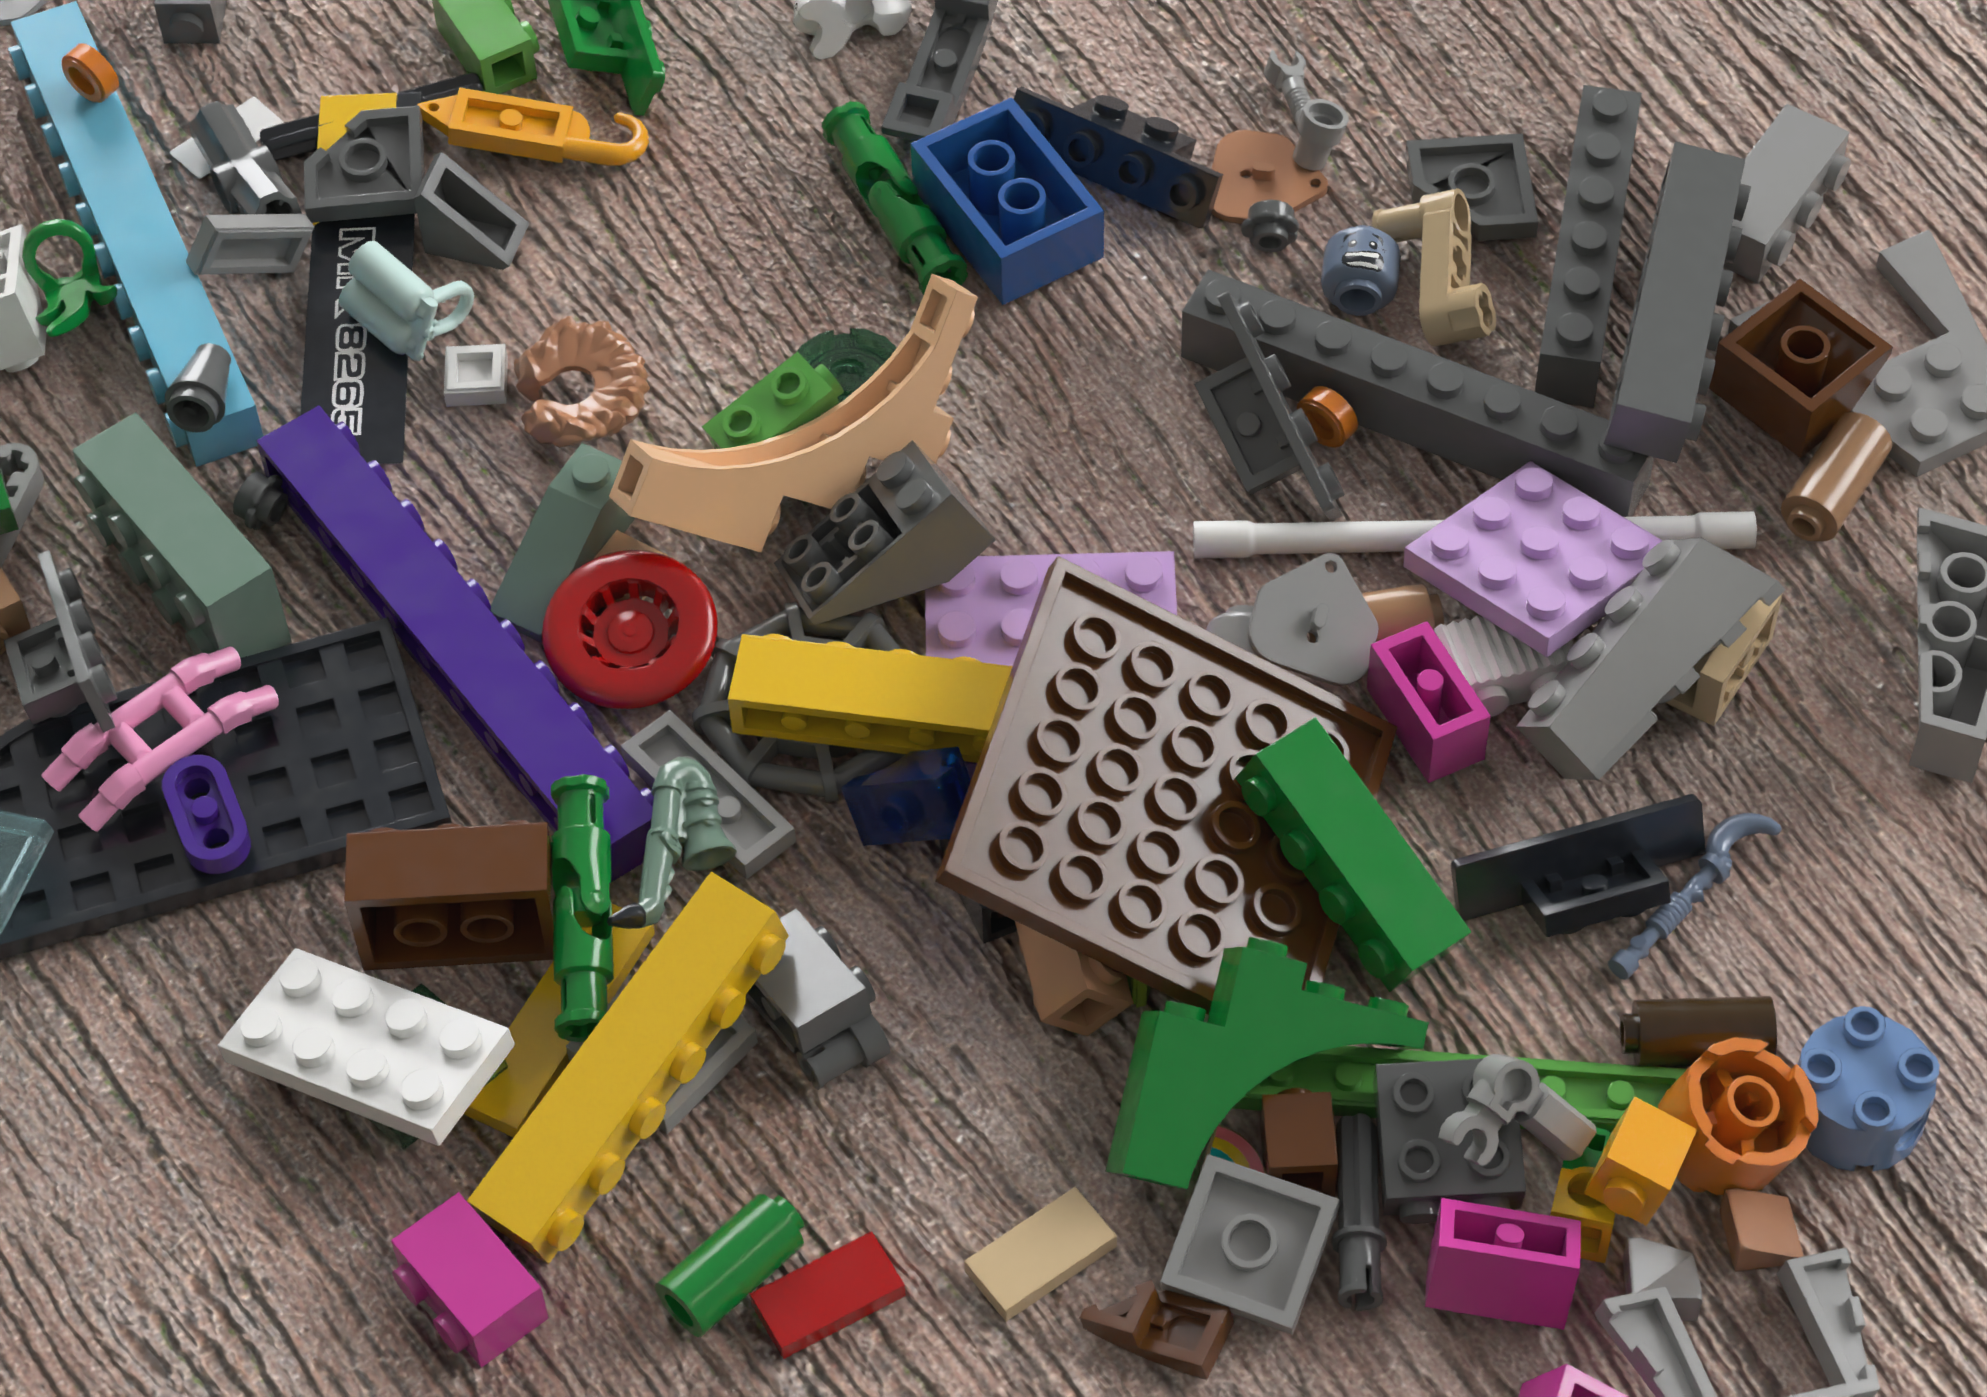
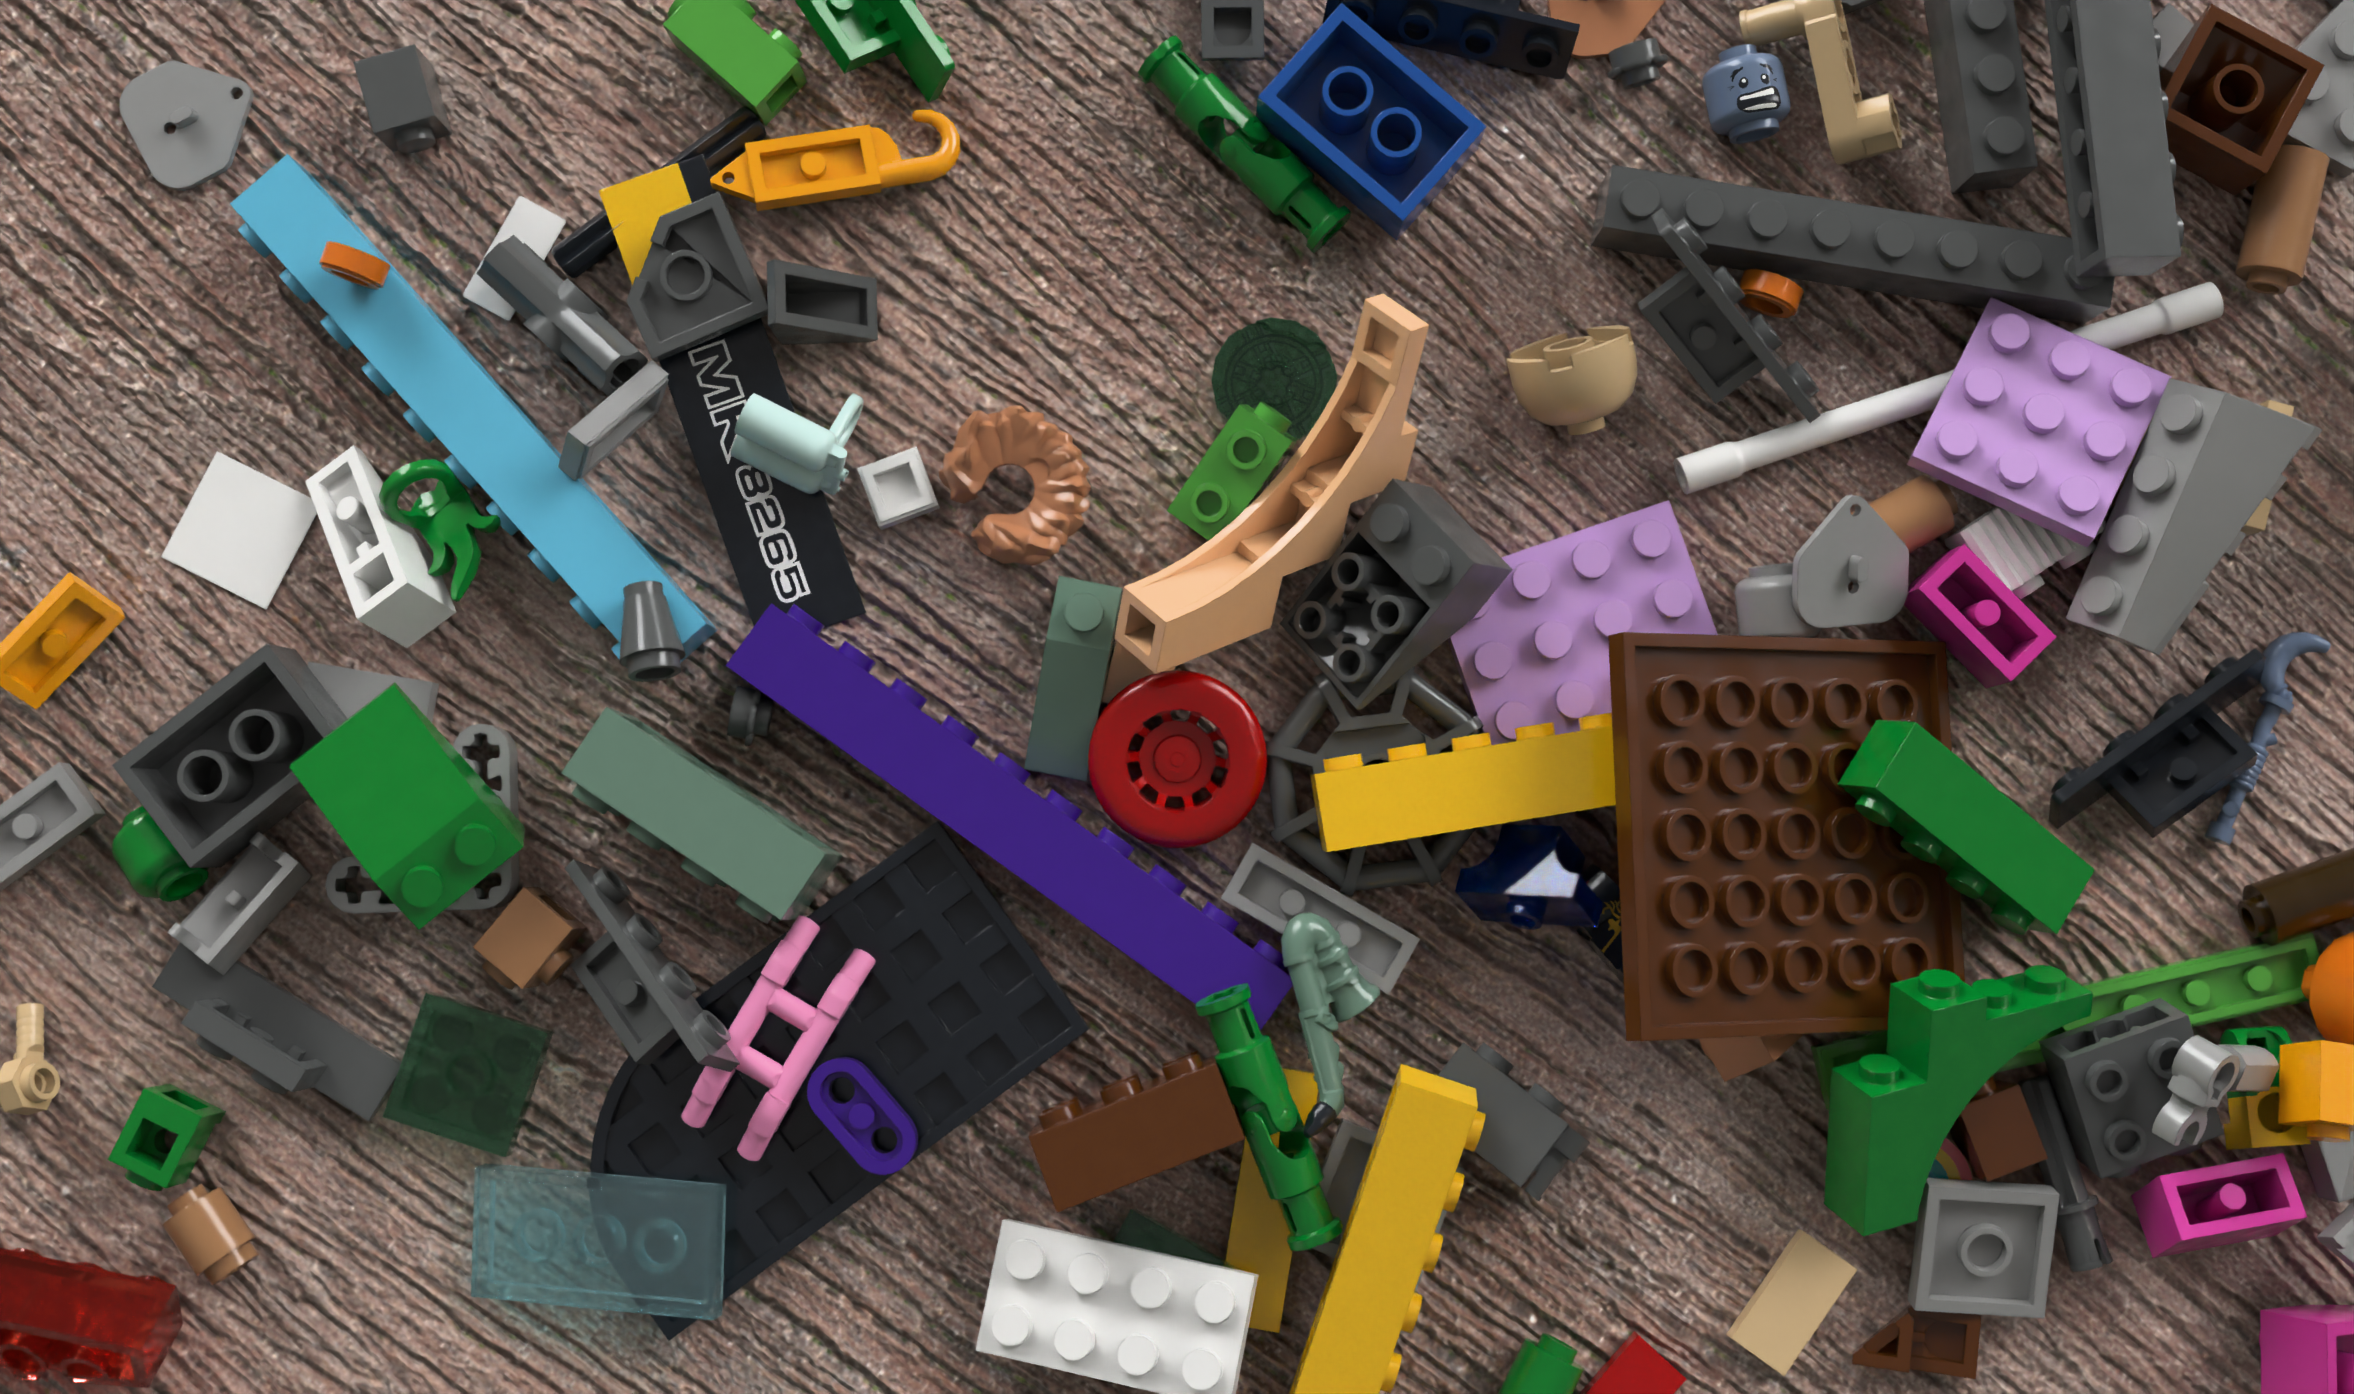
camera: 20 degrees left, 30 degrees up
(1118, 426) = (1575, 378): none -> tan cylinder

